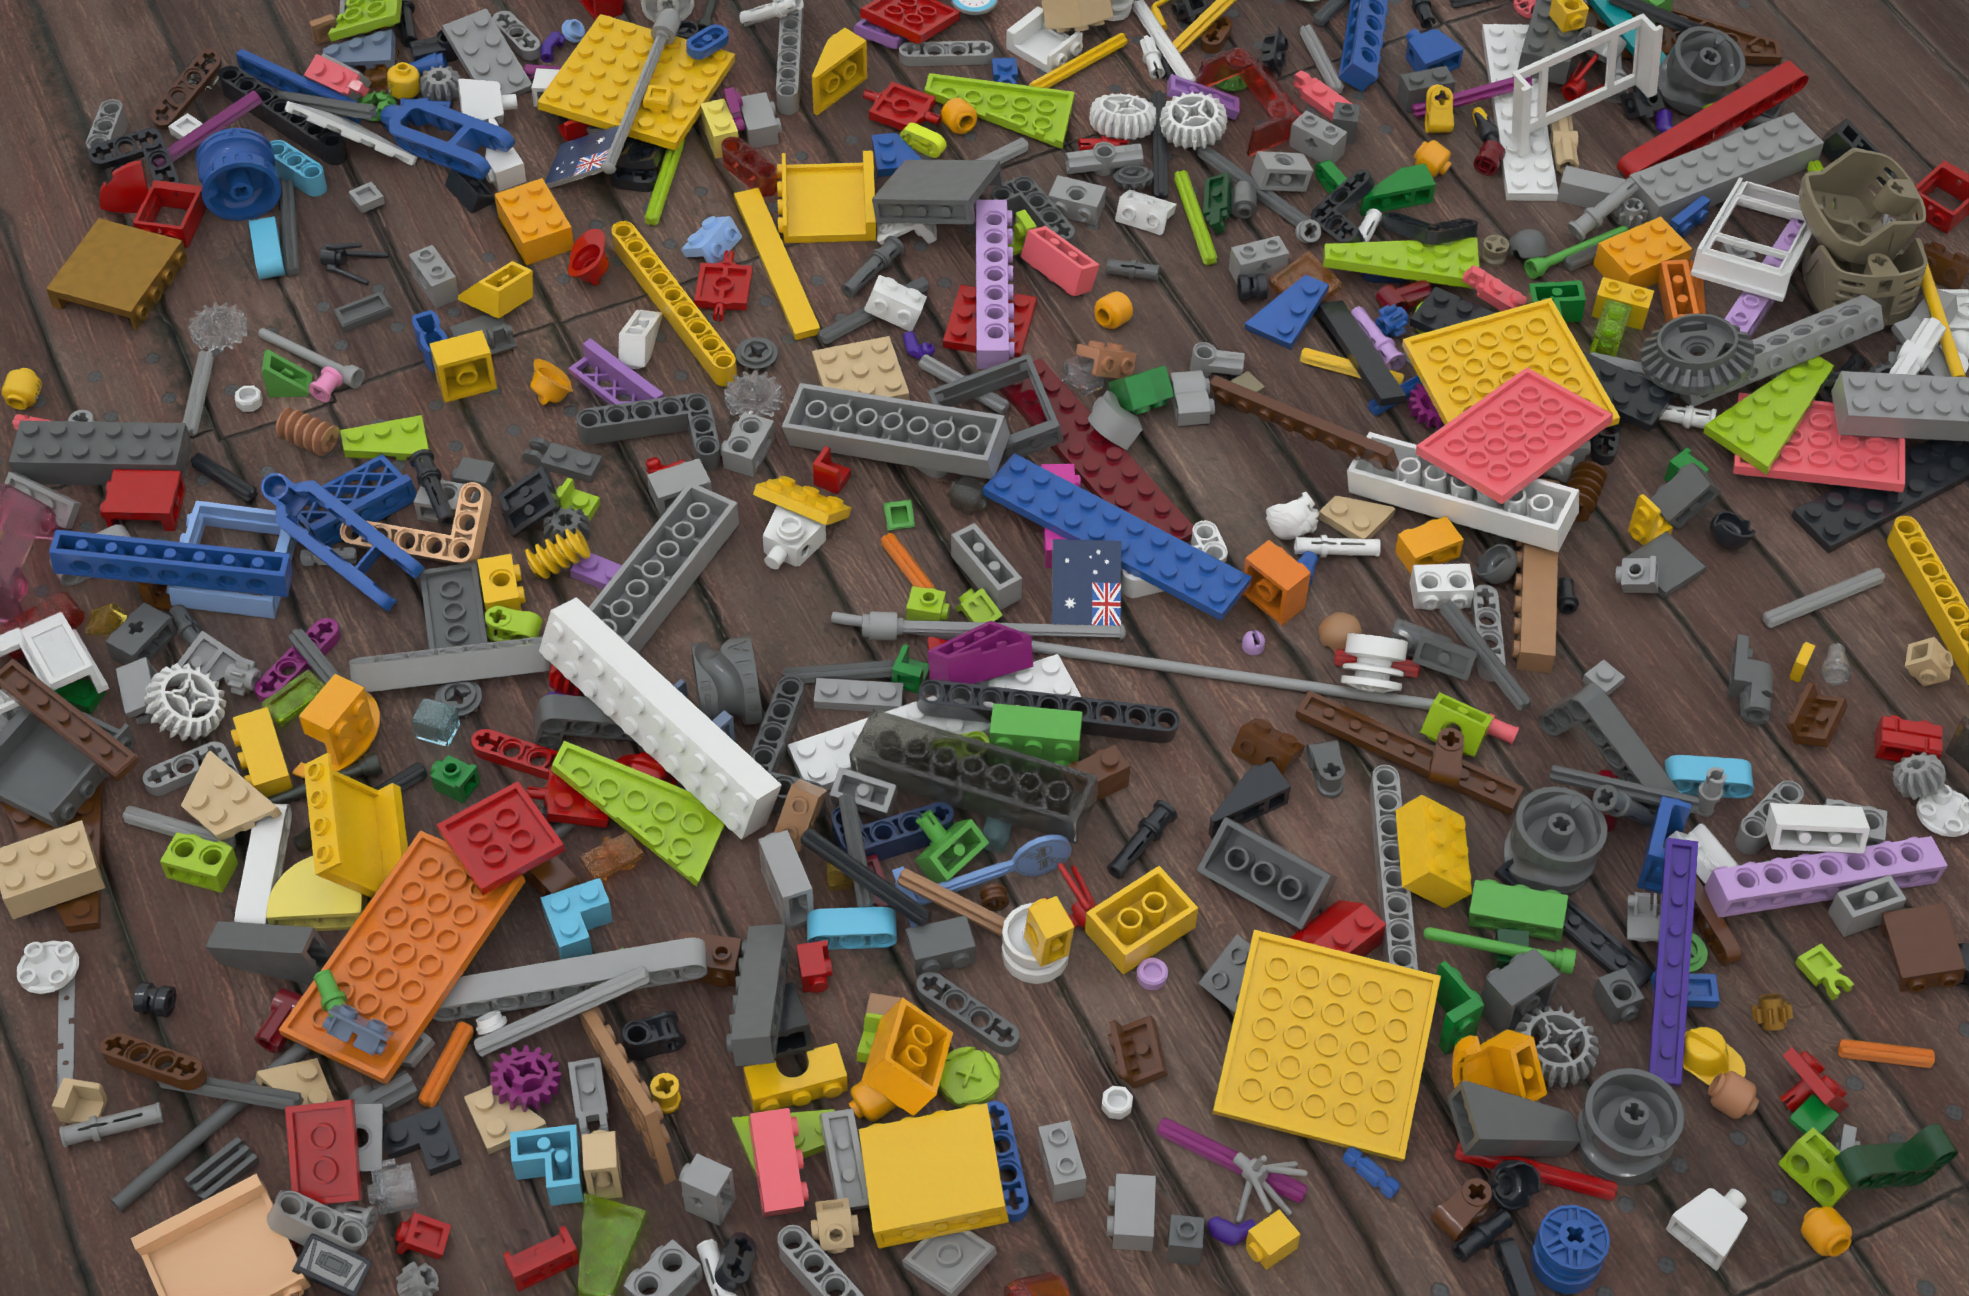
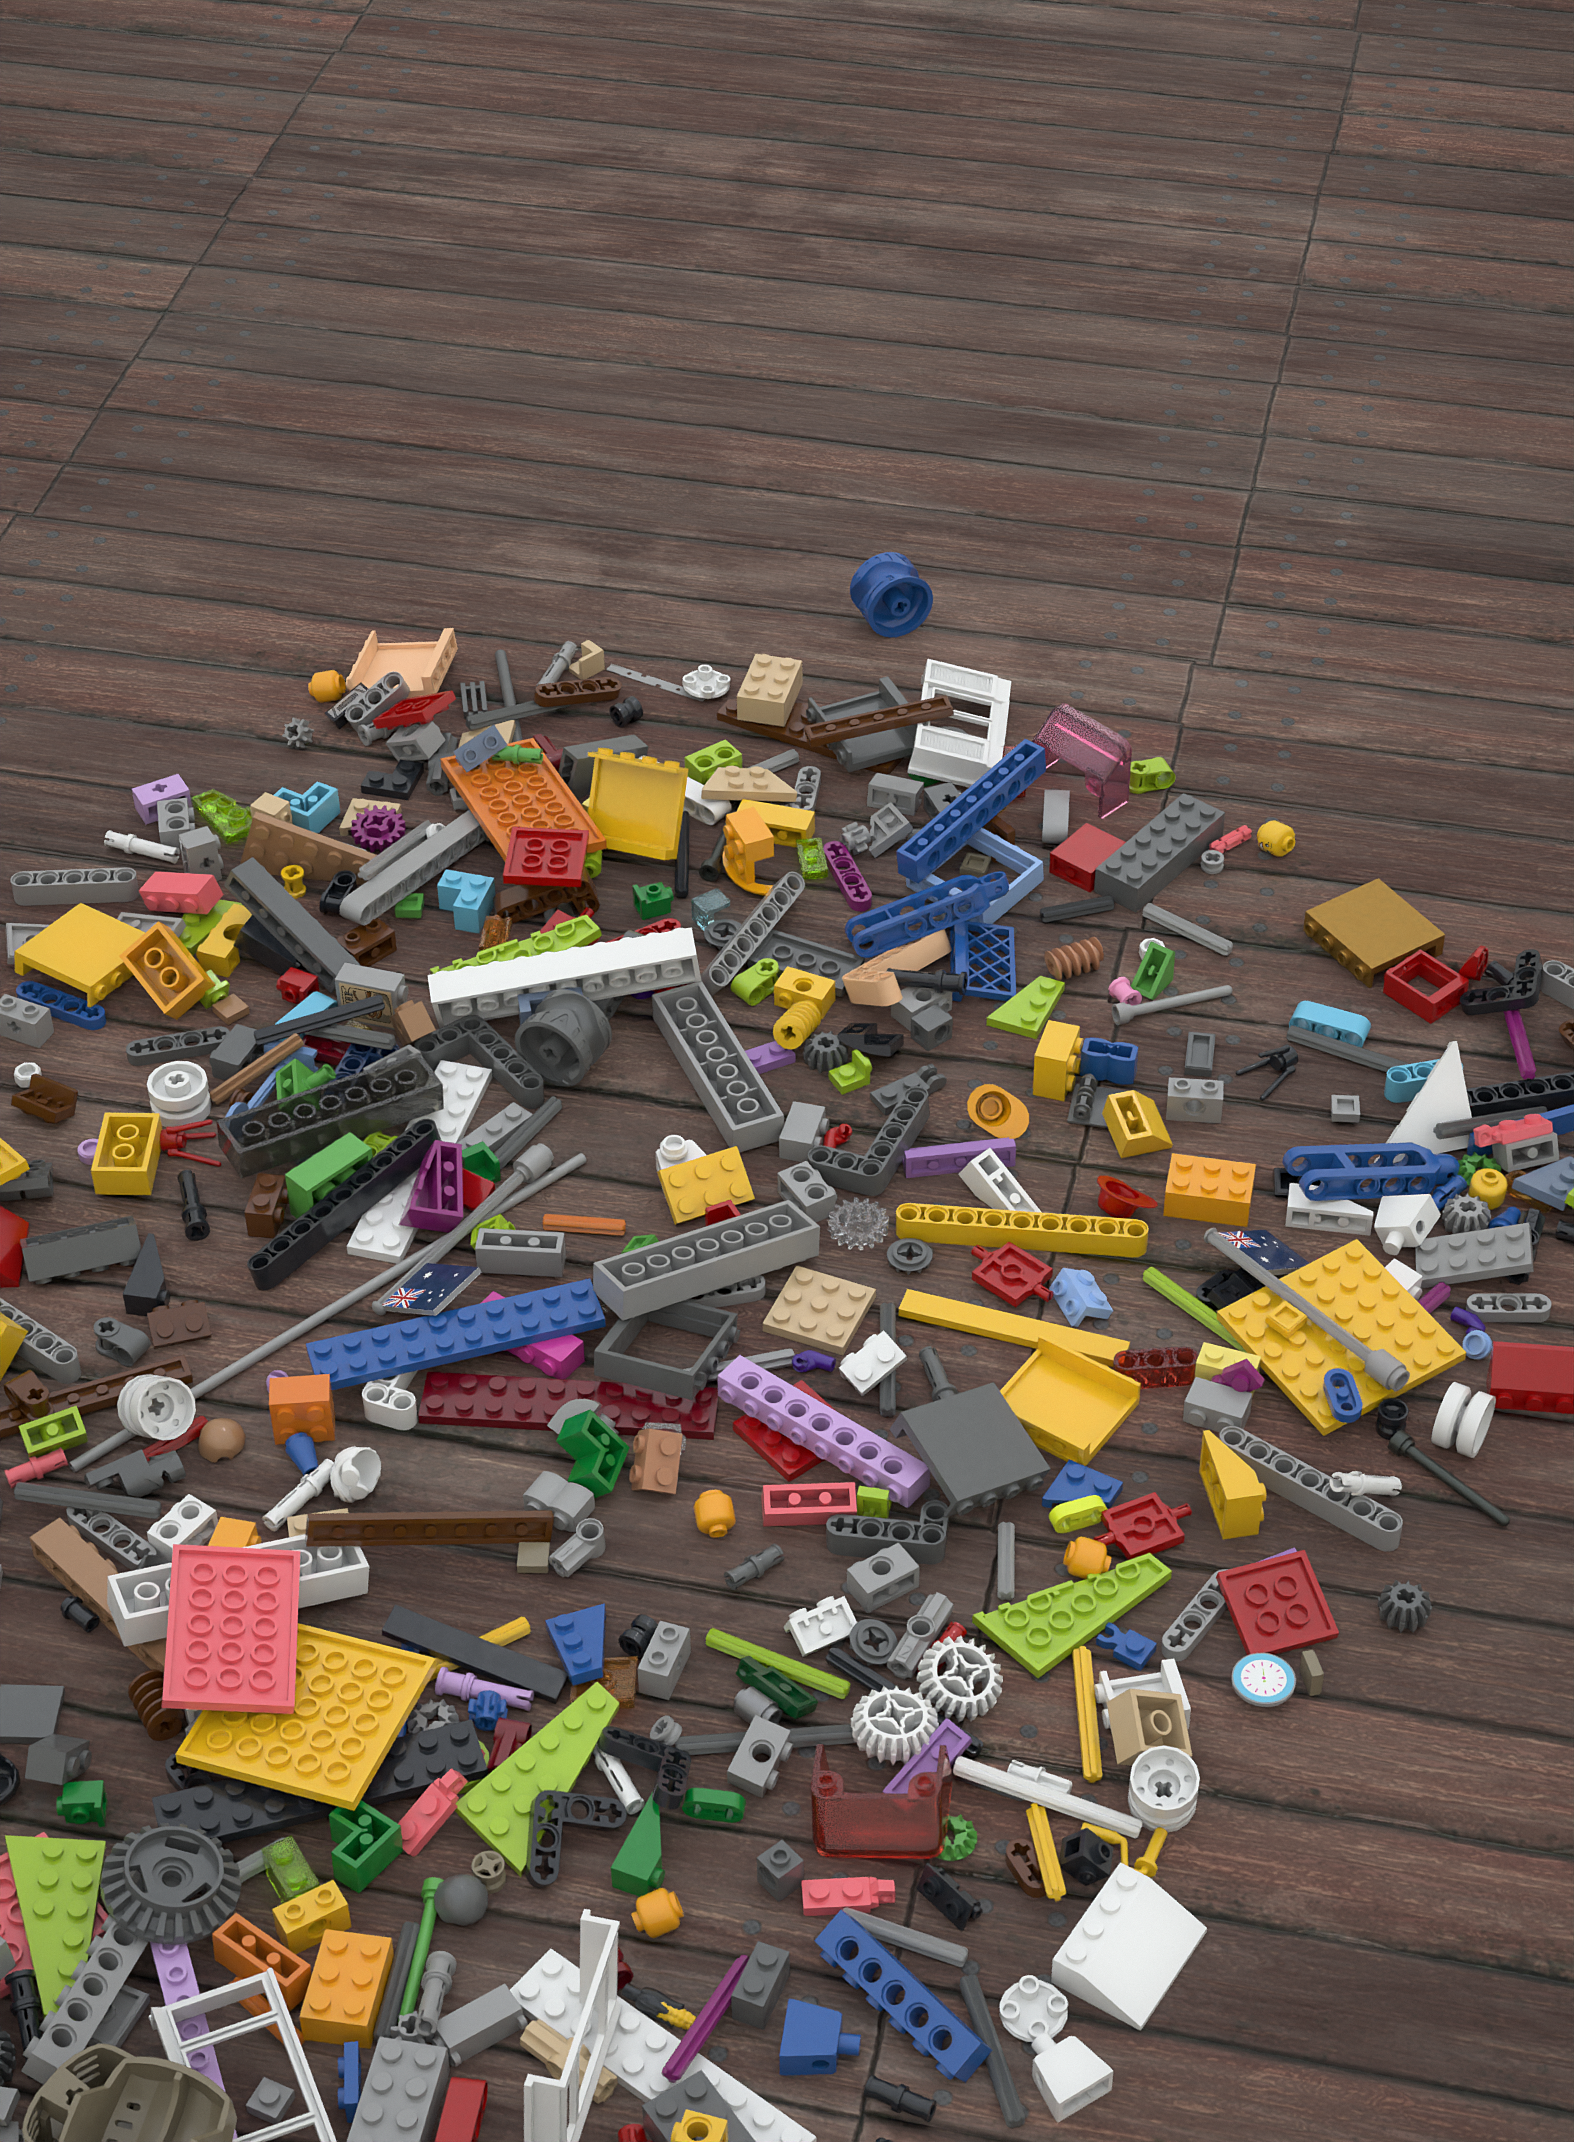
camera: 130 degrees right, 10 degrees down
(63, 506) = (1139, 812): light grey plate -> none
(175, 707) = (855, 803): white gear -> none
(184, 126) = (1542, 1040): white plate -> none
(218, 326) = (1252, 962): clear gear -> none
(238, 174) = (1419, 1018): blue piece -> none
(312, 655) = (818, 872): dark grey axle -> none
(393, 1187) = (370, 750): clear brick -> none
(422, 1235) = (327, 748): red bracket -> none
(446, 1065) = (431, 805): orange axle -> none
(542, 1260) = (253, 784): red hinge -> none
(741, 1264) = (142, 858): black beam -> none
(834, 1225) = (113, 899): tan brick -> none
(927, 605) = (525, 1205): lime brick -> none
(969, 1077) = (136, 1022): lime tile -> none
(1048, 930) = (154, 1057): yellow brick -> none
(1317, 138) = (784, 1821): light grey brick -> none
(1439, 113) = (713, 1965): yellow piece -> none
(1643, 582) = (32, 1668): light grey brick -> none
(1647, 522) = (70, 1710): yellow bracket -> none

